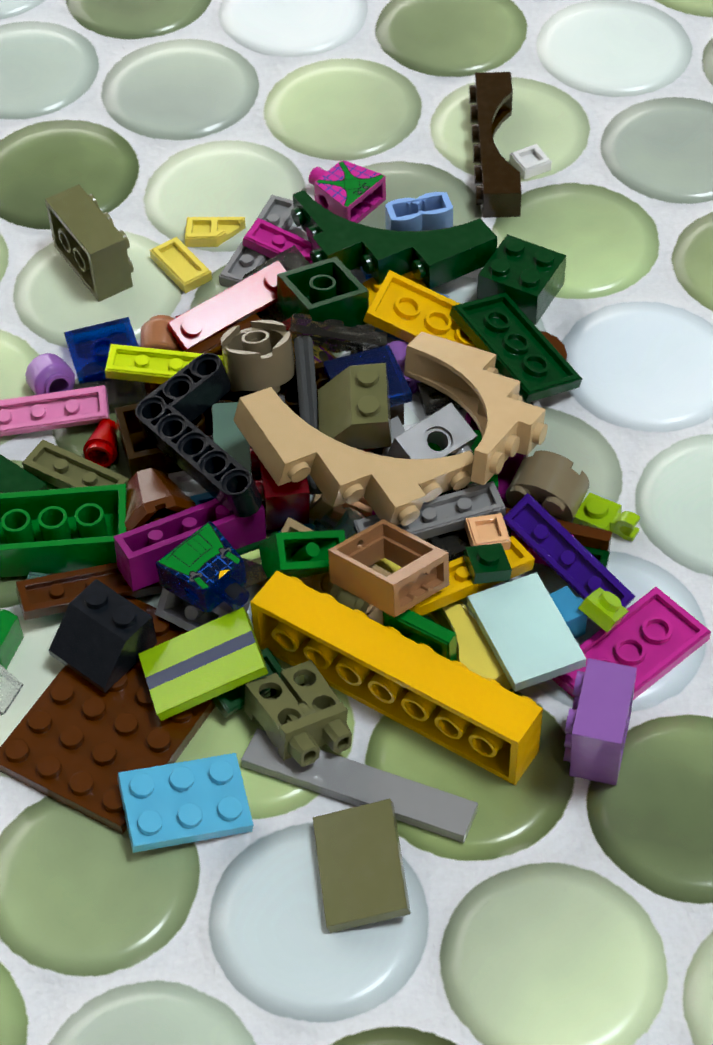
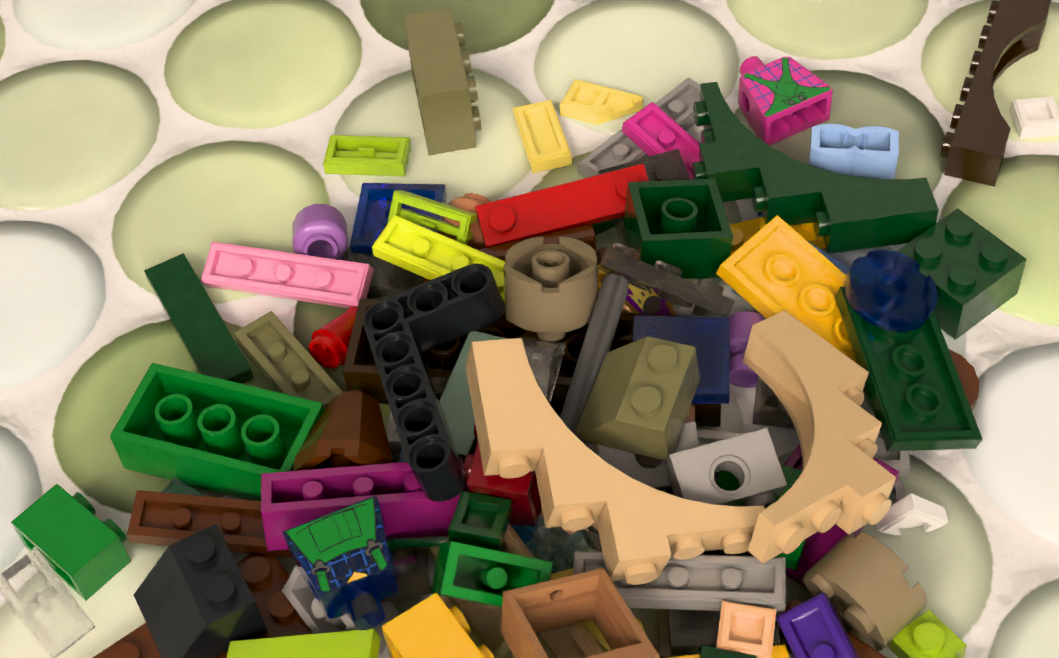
camera: 25 degrees right, 0 degrees up
(52, 313) = (370, 155): none -> lime tile
(166, 332) = (465, 217): none -> lime tile
(282, 517) = (480, 520): none -> dark green plate
(486, 299) = (890, 291): none -> clear blue tile
(557, 437) = (910, 513): none -> white tile

